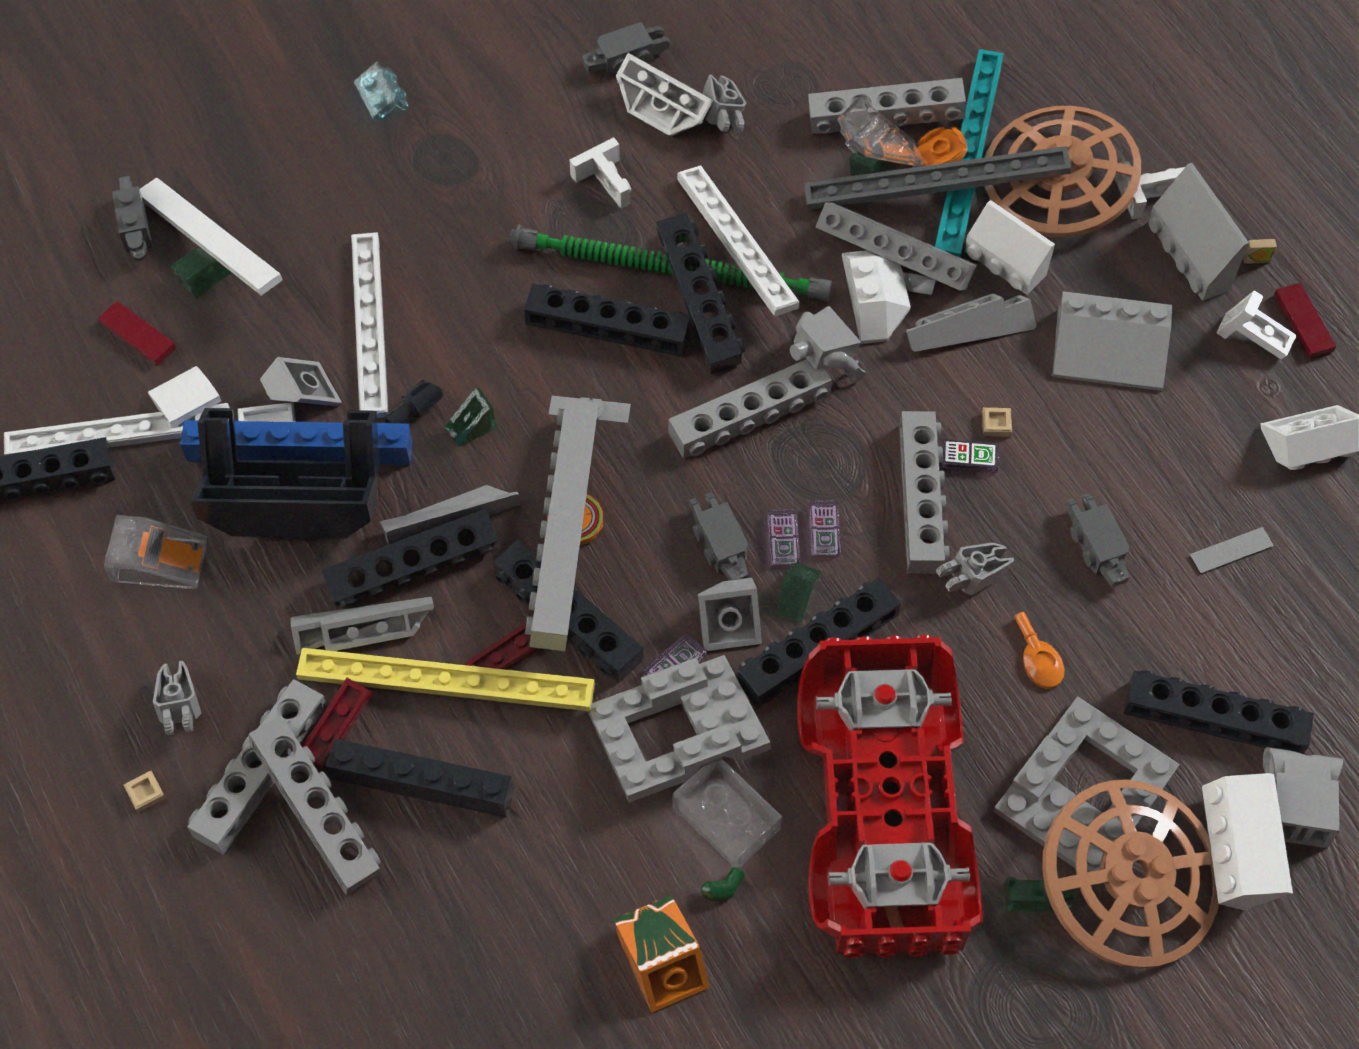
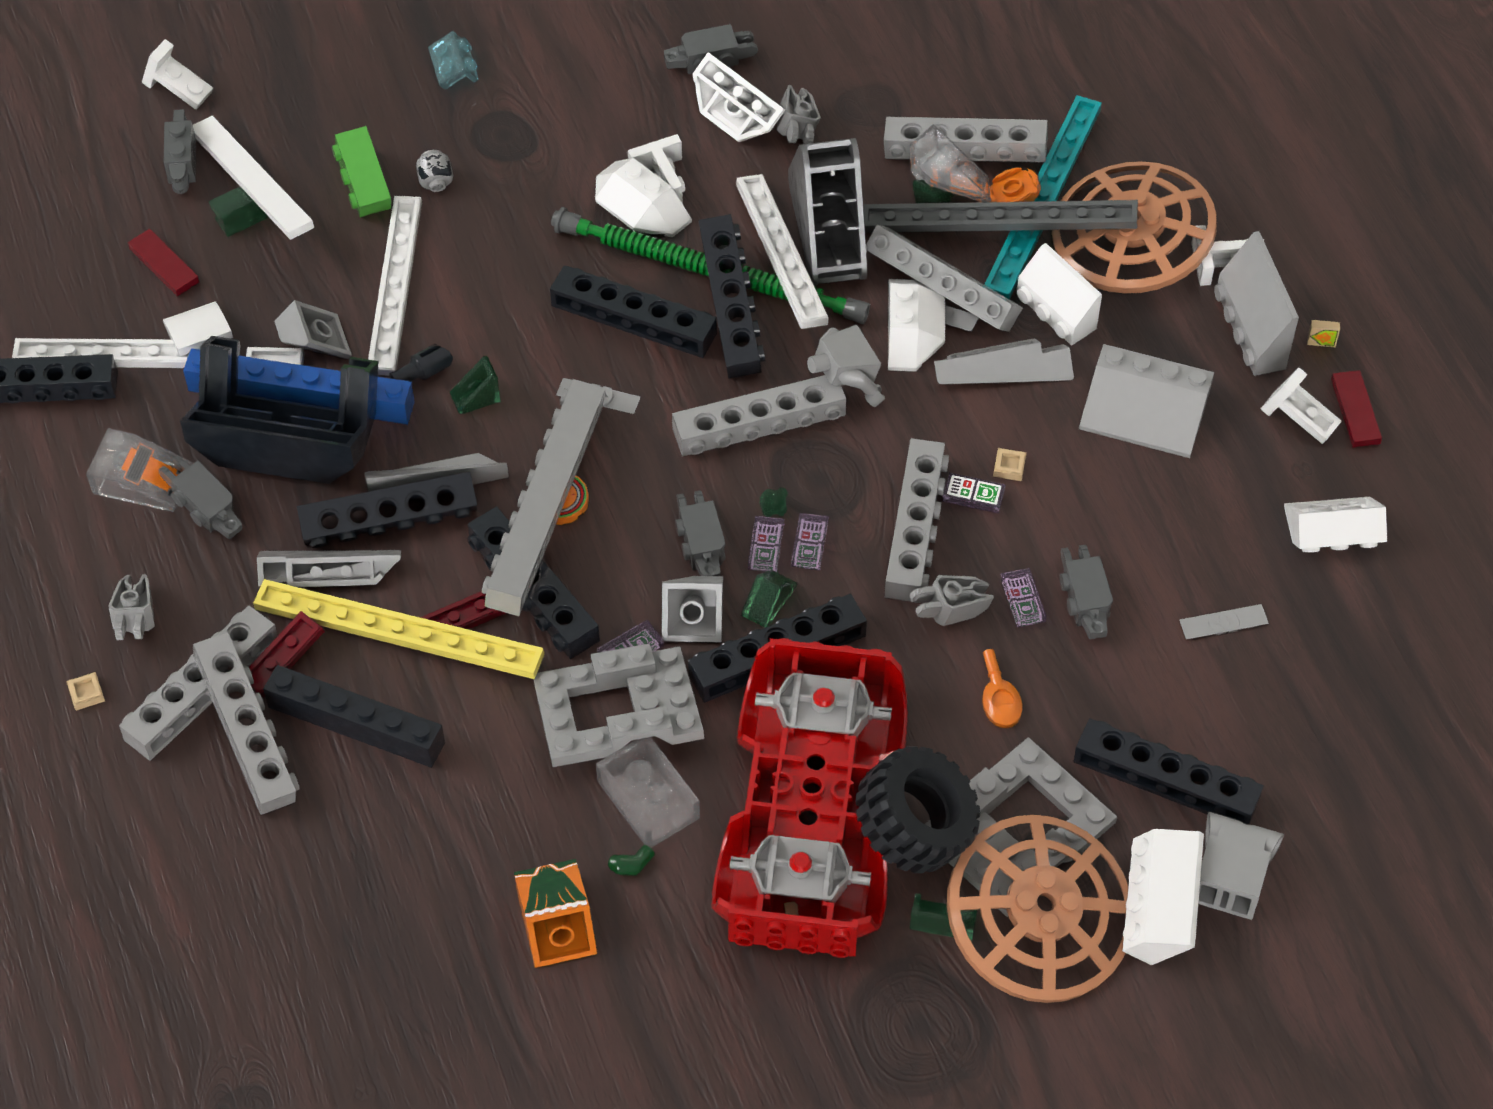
camera: 10 degrees right, 5 degrees down
(113, 143) = (175, 76): none -> white bracket
(225, 571) = (203, 496): none -> dark grey hinge
(316, 215) = (361, 171): none -> bright green wedge
(385, 204) = (433, 170): none -> light grey head
(589, 205) = (640, 199): none -> white wedge
(778, 193) = (829, 209): none -> flat silver brick
(783, 493) = (768, 499): none -> clear green plate
(979, 813) = (894, 827): none -> black tyre
(1039, 554) = (1023, 597): none -> clear purple tile

